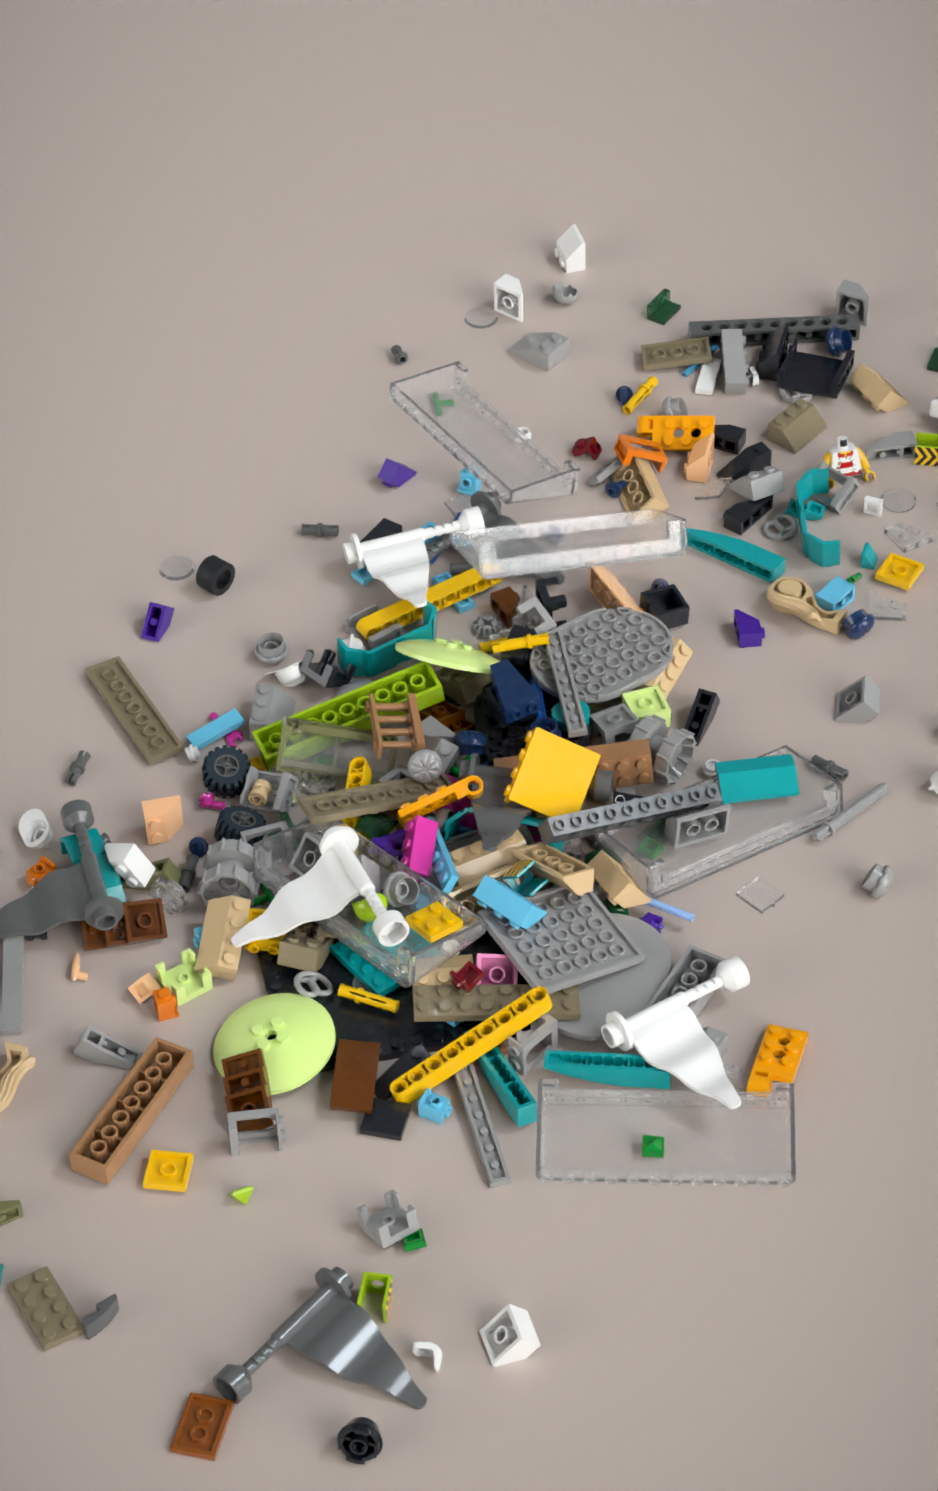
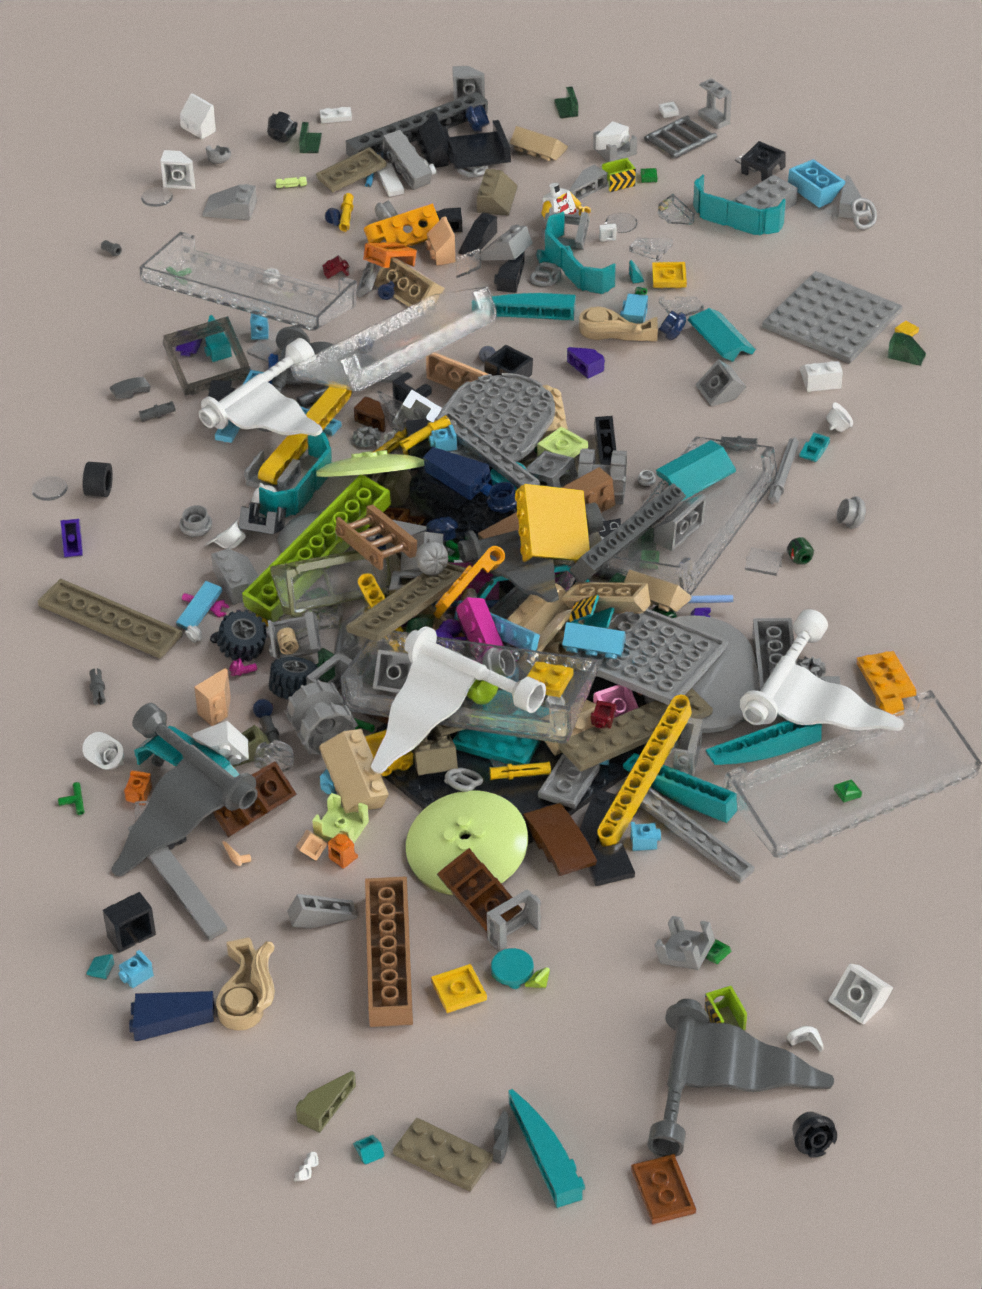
camera: 30 degrees left, 0 degrees up
(126, 1356) = (548, 1153): none -> teal slope
(228, 1173) = (512, 967): none -> teal tile
(308, 497) = (127, 387): none -> dark grey slope
(395, 467) = (199, 332): none -> clear smoke window
(400, 1031) = (567, 783): none -> light grey tile
(420, 481) = (217, 345): none -> teal slope
(532, 656) = (444, 439): none -> medium azure brick
(613, 346) = (291, 182): none -> yellowish green axle
(640, 287) = (281, 127): none -> black cone
(708, 291) = (335, 115): none -> white plate
(717, 1022) = (818, 667): none -> light grey gear
(798, 898) = (800, 550): none -> dark green head
(900, 651) = (720, 333): none -> teal slope
(900, 803) = (815, 447): none -> teal slope

